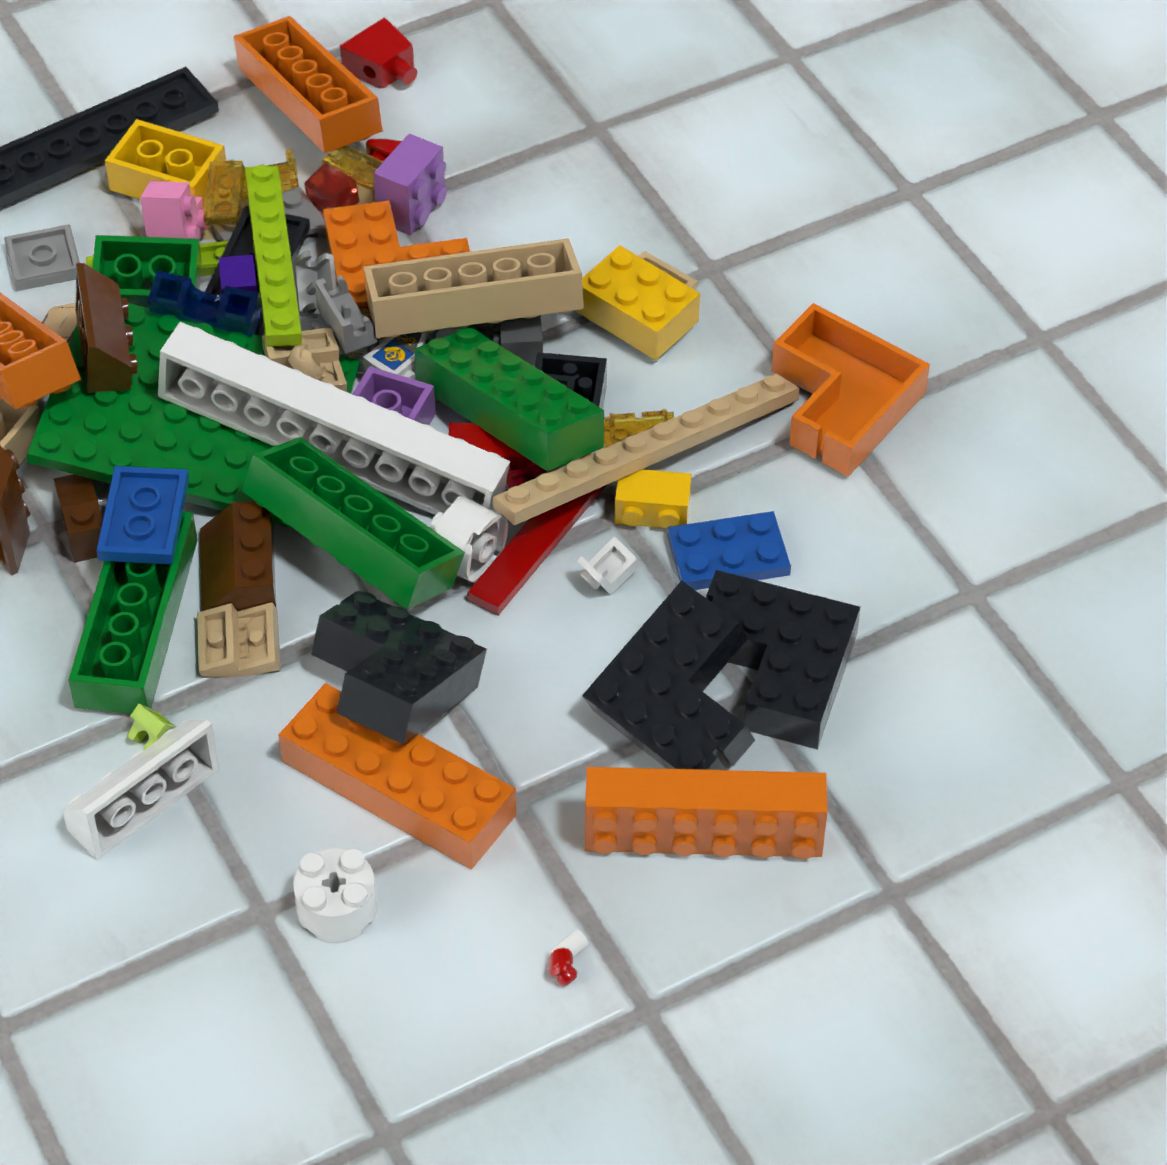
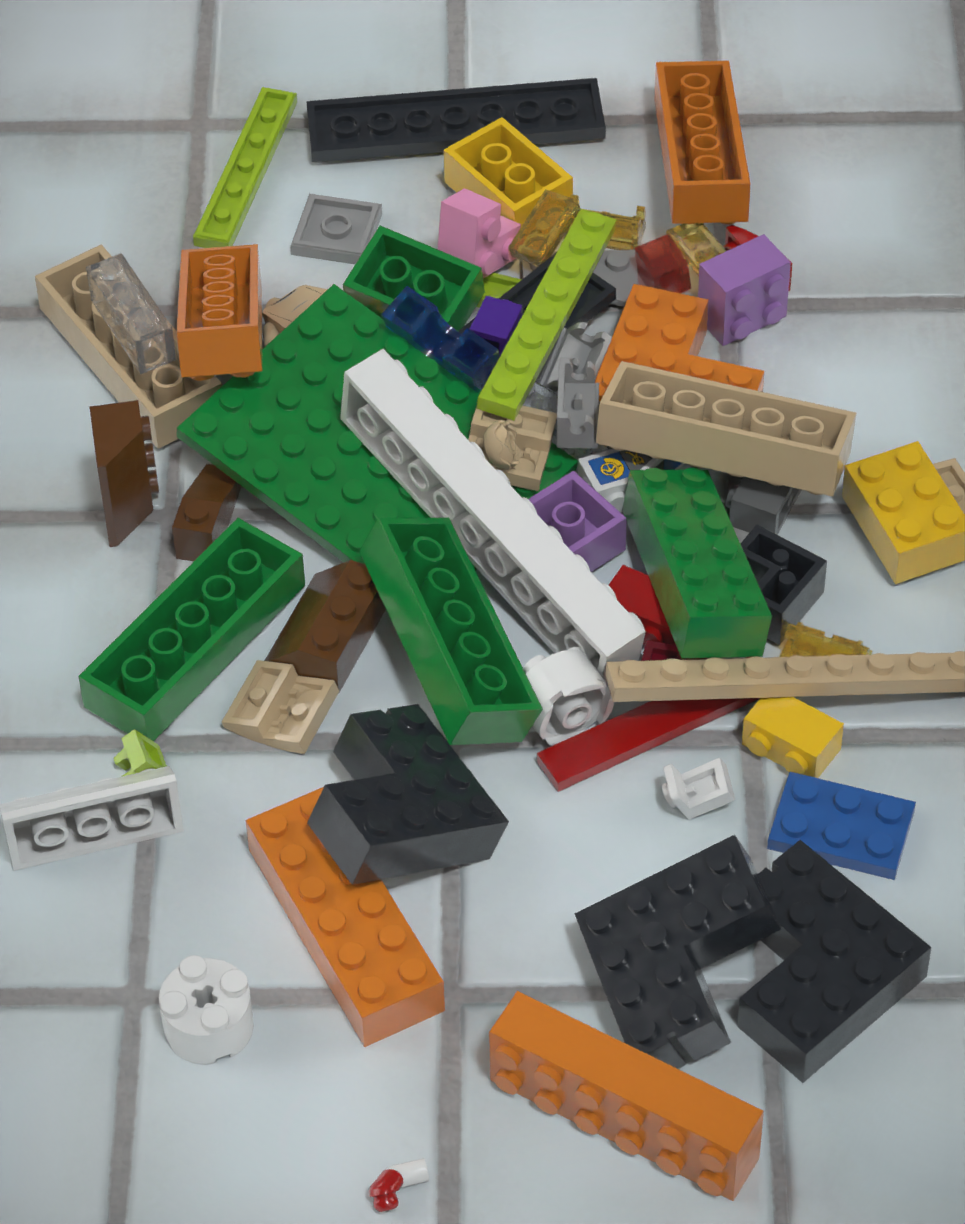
camera: 30 degrees right, 0 degrees up
(103, 332) = (313, 329): reddish brown slope -> none
(143, 515) = (247, 536): blue plate -> none
(379, 55) = (805, 137): red torso -> none

